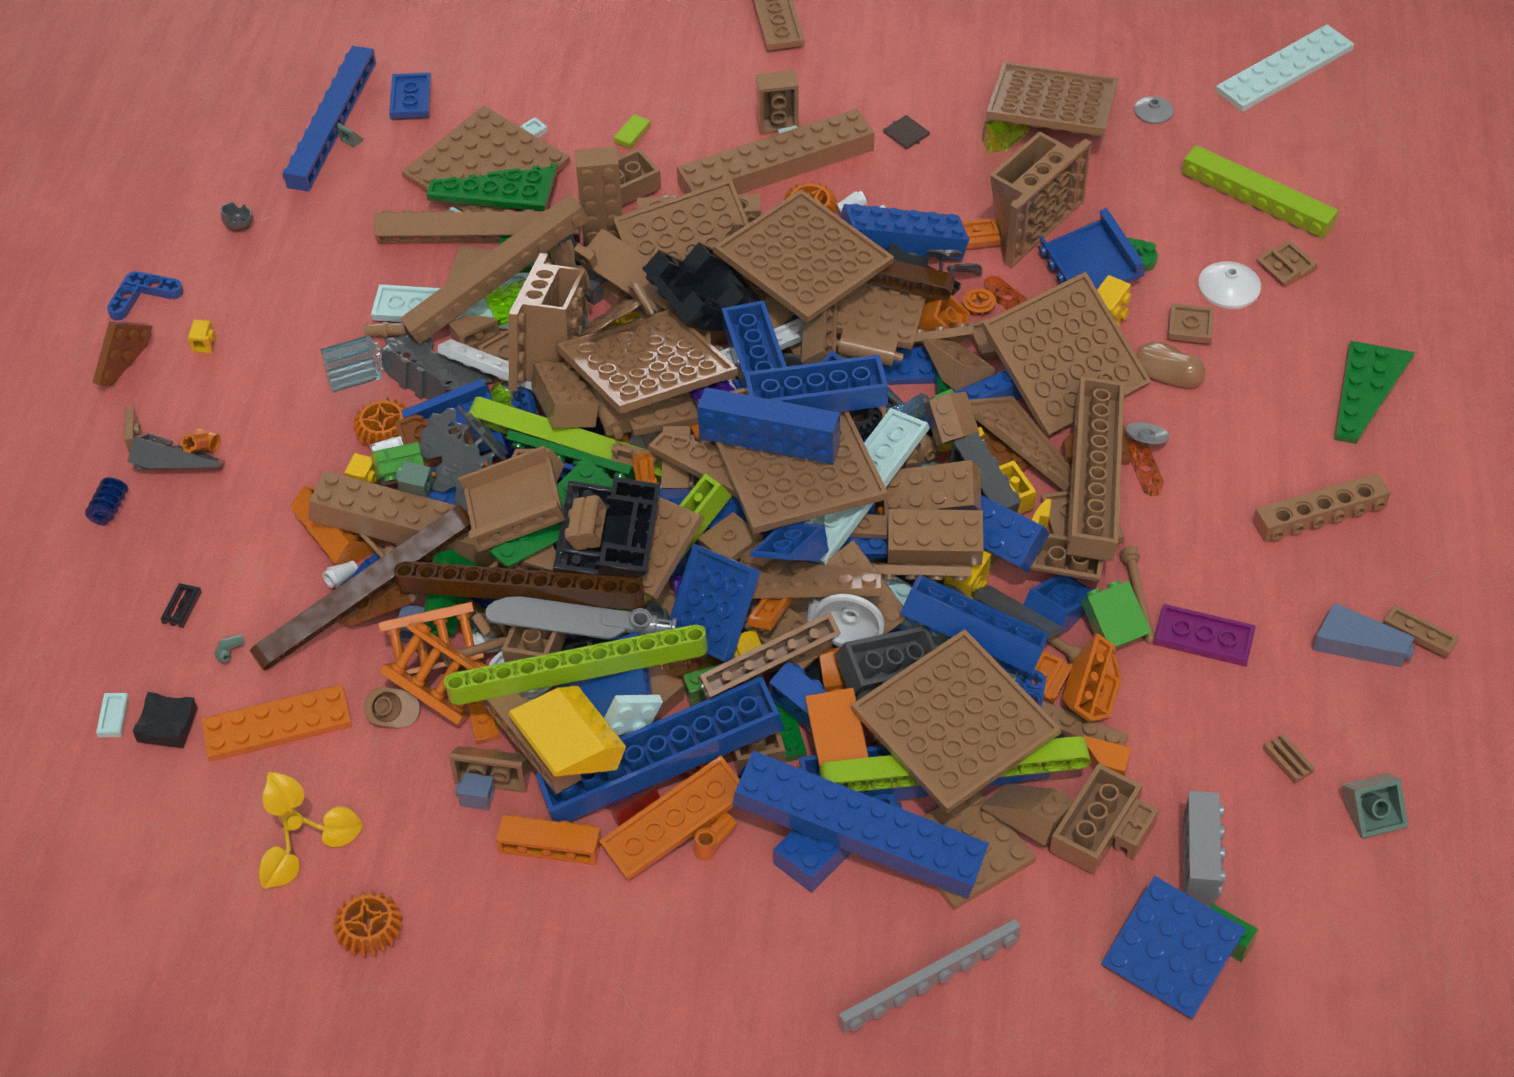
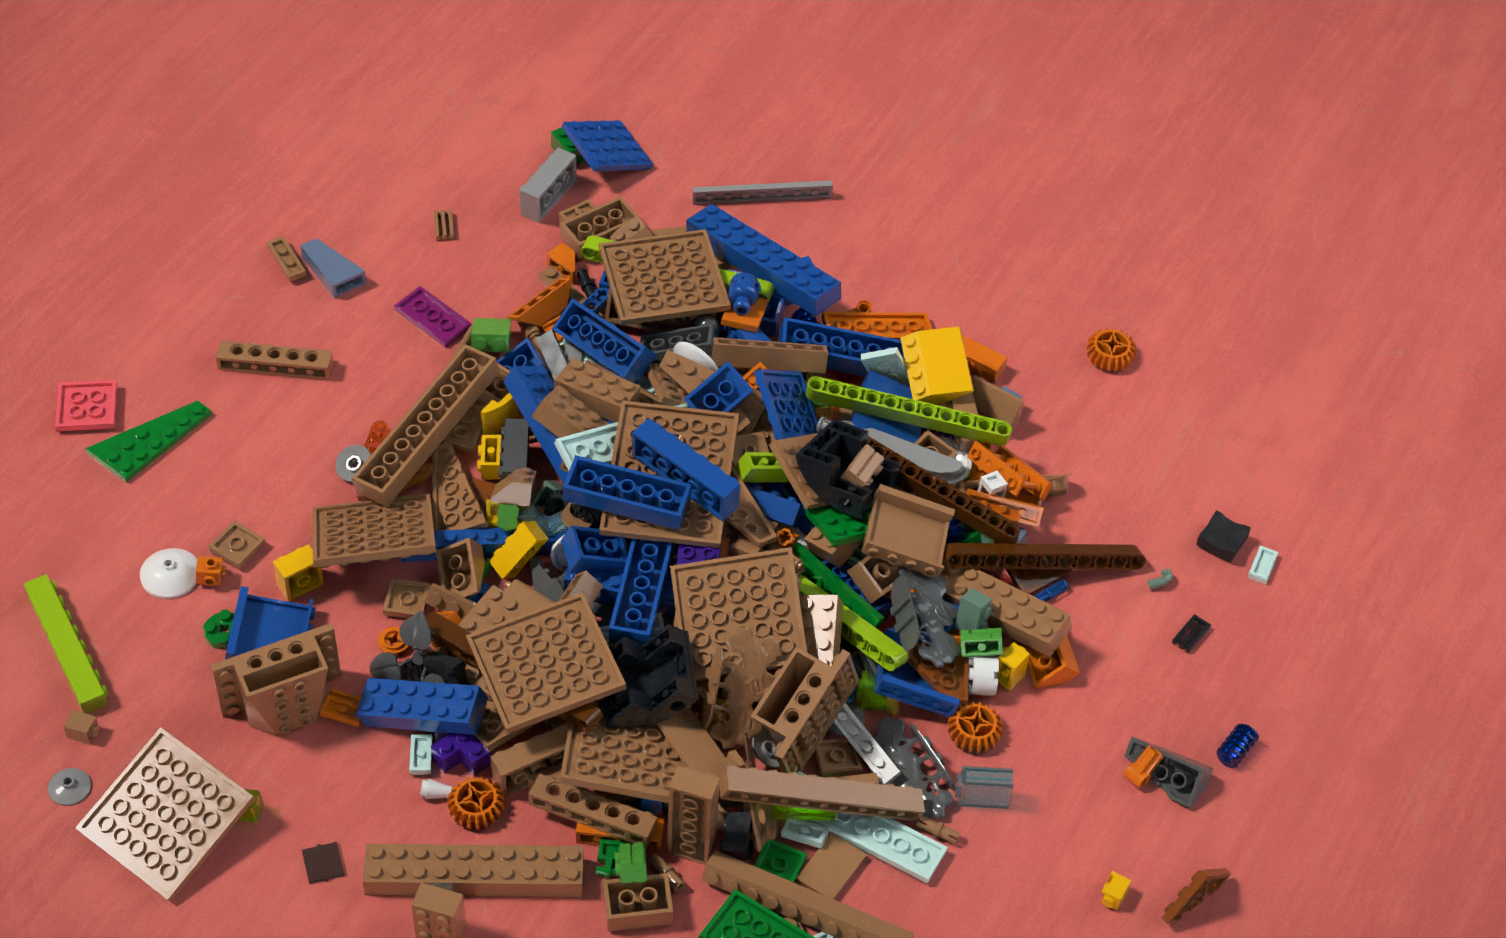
camera: 160 degrees left, 0 degrees up
(132, 426) = (1201, 812): medium nougat plate -> none
(275, 722) = (1138, 511): orange plate -> none
(279, 799) = (1145, 429): yellow plant -> none
(338, 574) = (1059, 601): white cone -> none
(446, 626) = (993, 483): none -> white panel
(640, 182) = (631, 863): none -> bright green brick
(846, 730) = (743, 292): none -> blue piece
(909, 386) = (518, 549): none -> yellow brick
(1003, 289) = (369, 628): clear orange beam -> none
(1171, 365) = (285, 517): medium nougat hair -> none
(1181, 140) = (81, 727): none -> medium nougat brick
(1191, 285) = (210, 571): none -> orange brick
(1287, 263) = (106, 570): medium nougat slope -> none
(1376, 804) = (414, 177): sand green slope -> none
(1457, 391) = (86, 405): none -> coral plate

